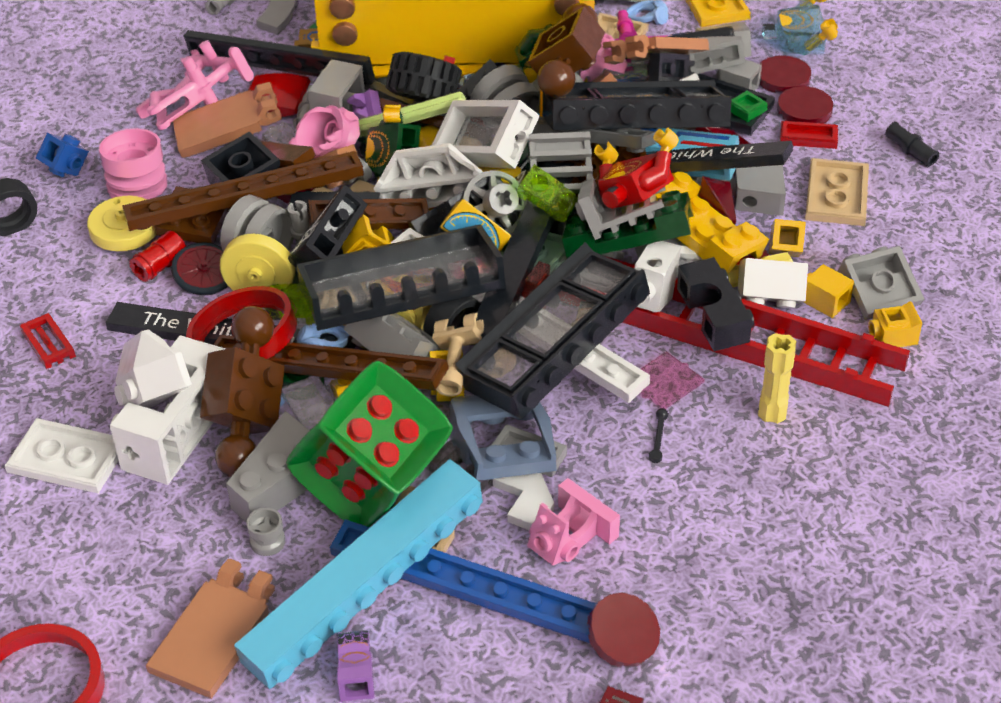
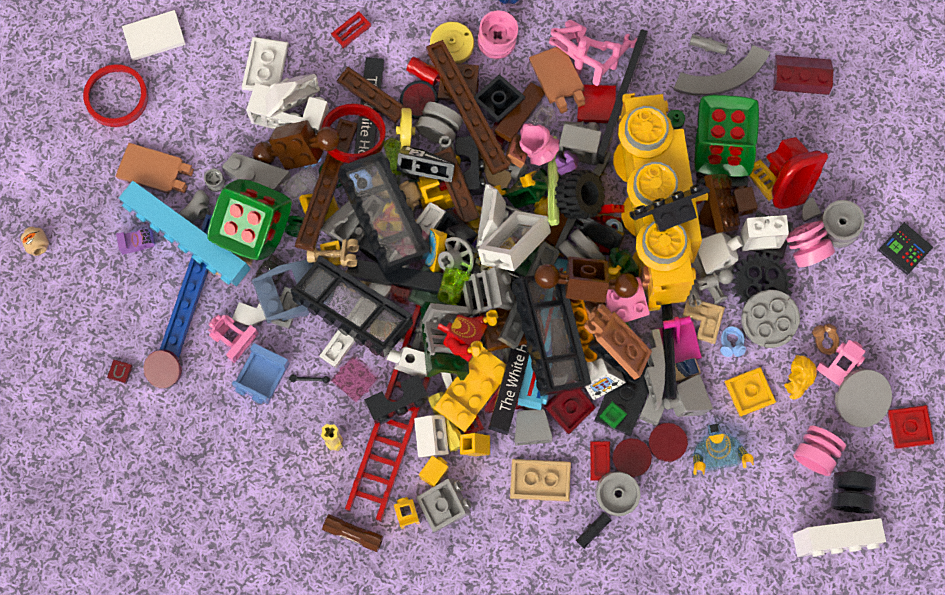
camera: 85 degrees right, 30 degrees up
(178, 313) = (371, 94): none -> reddish brown tile
(306, 559) = (197, 207): none -> light grey piece
(645, 492) = (261, 374): none -> medium blue panel
(861, 108) = (617, 481): none -> light grey wheel
(922, 406) = (353, 533): none -> reddish brown axle

